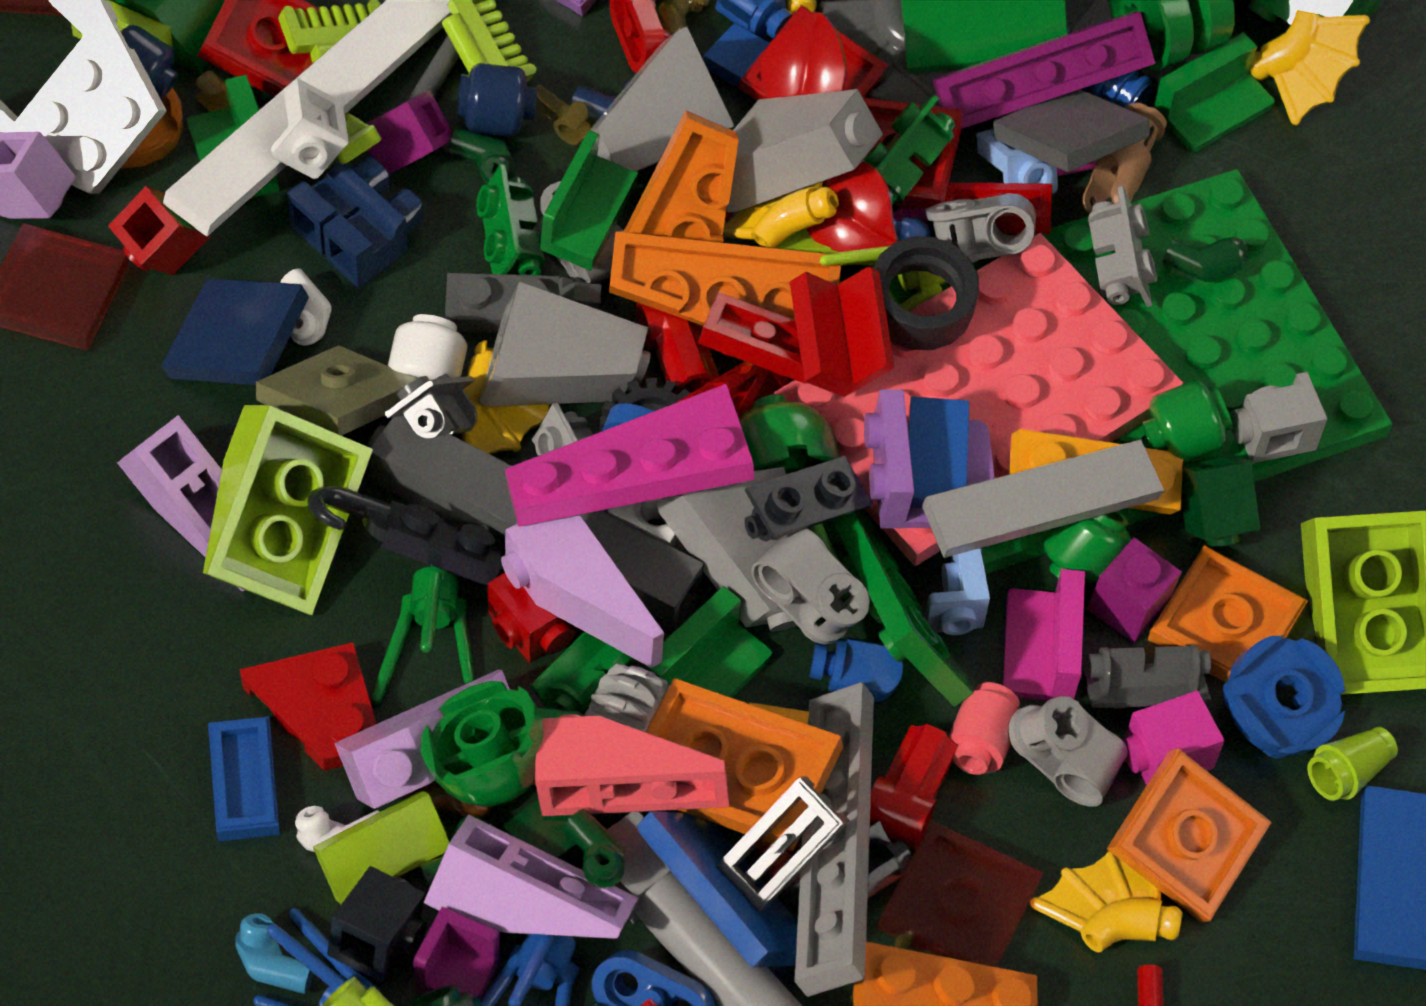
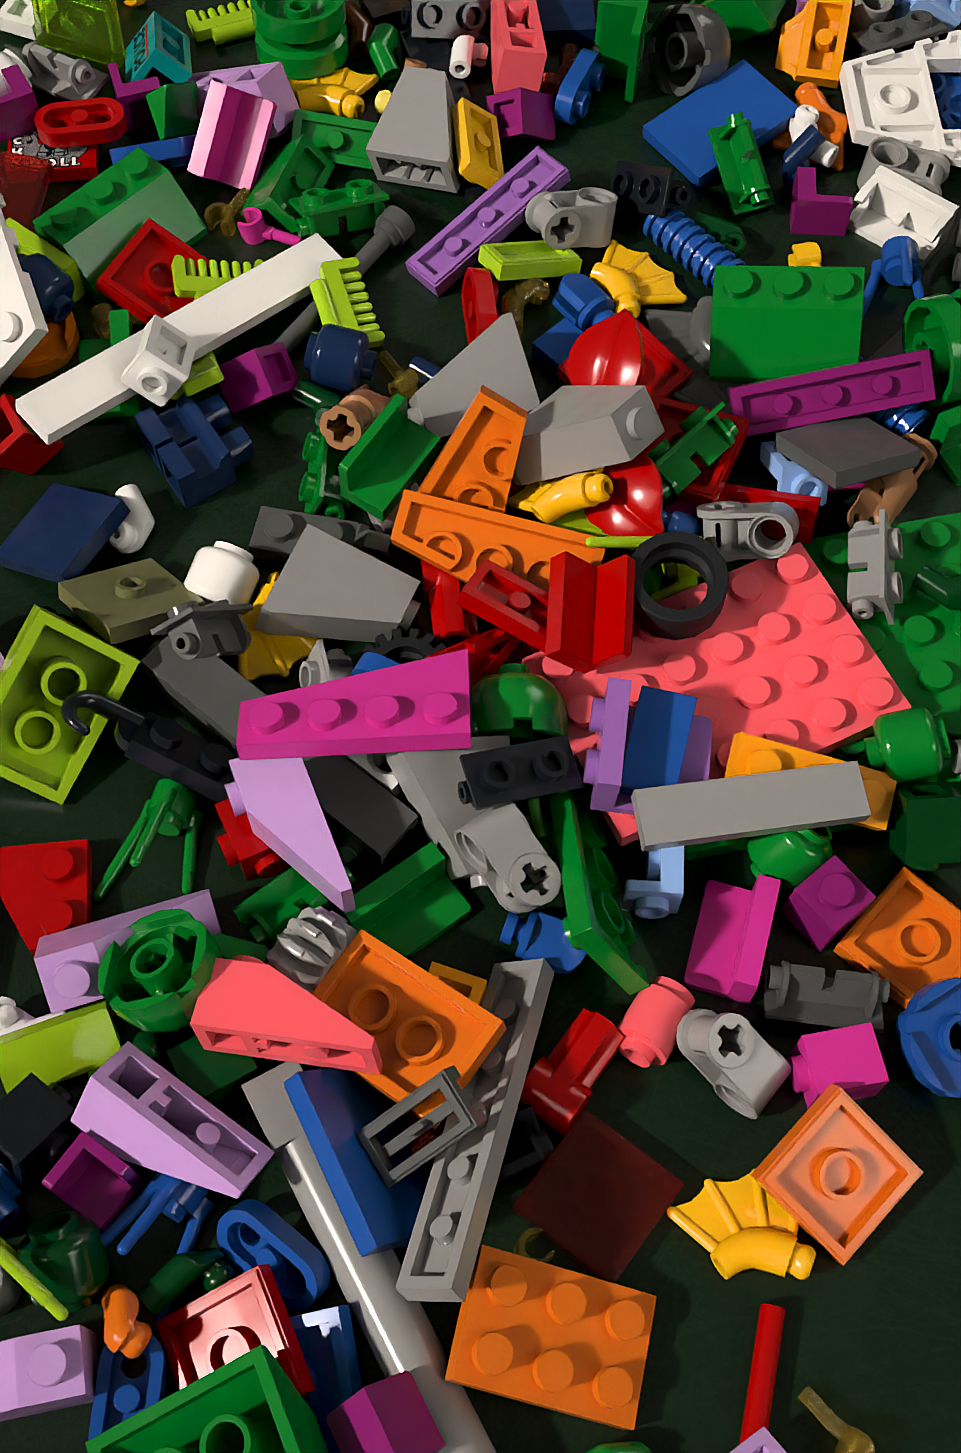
camera: 15 degrees right, 5 degrees up
(533, 163) = (352, 417): none -> medium nougat piece
(602, 851) = (248, 1102): dark green arm -> none

